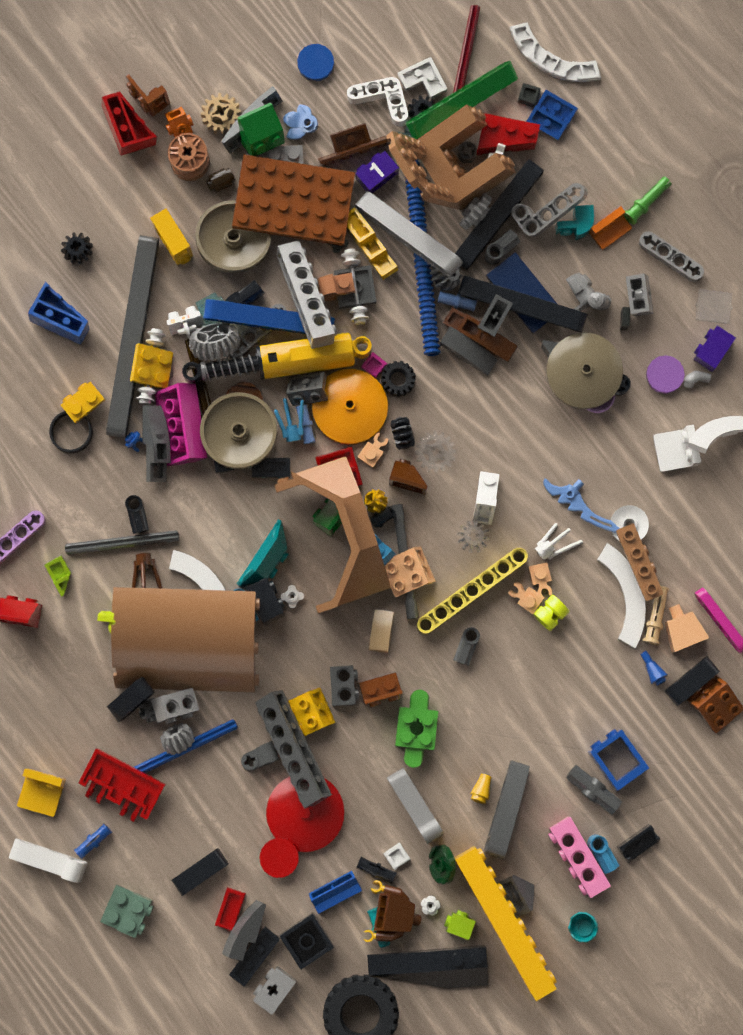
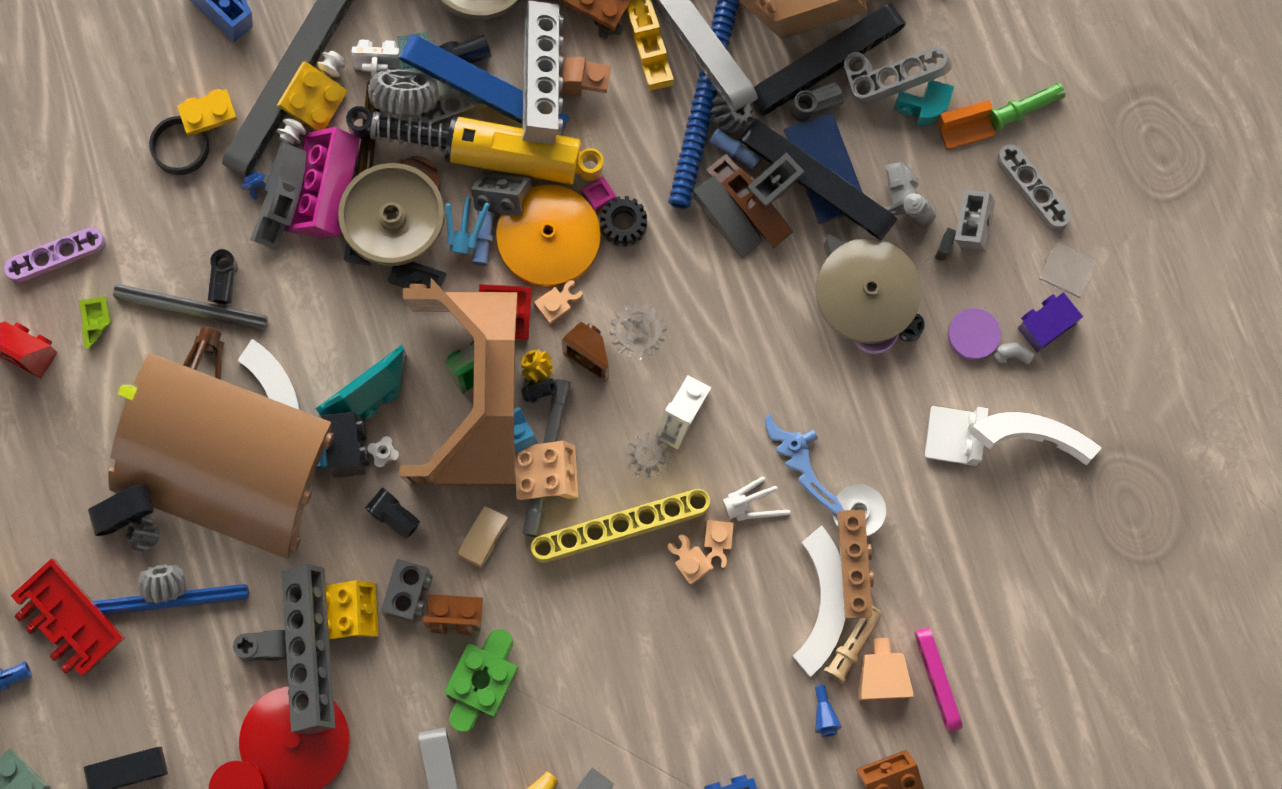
camera: 15 degrees right, 5 degrees down
(175, 705) = (175, 534): light grey brick -> none
(311, 635) = (388, 510): none -> black piece
(363, 286) = (620, 89): dark grey plate -> none
(402, 433) = (603, 290): black gear -> none
(466, 648) = (586, 598): dark grey piece -> none
(475, 211) = (798, 43): light grey gear -> none
(551, 612) = (715, 590): neon yellow wheel -> none
(692, 681) = (871, 747): black beam -> none

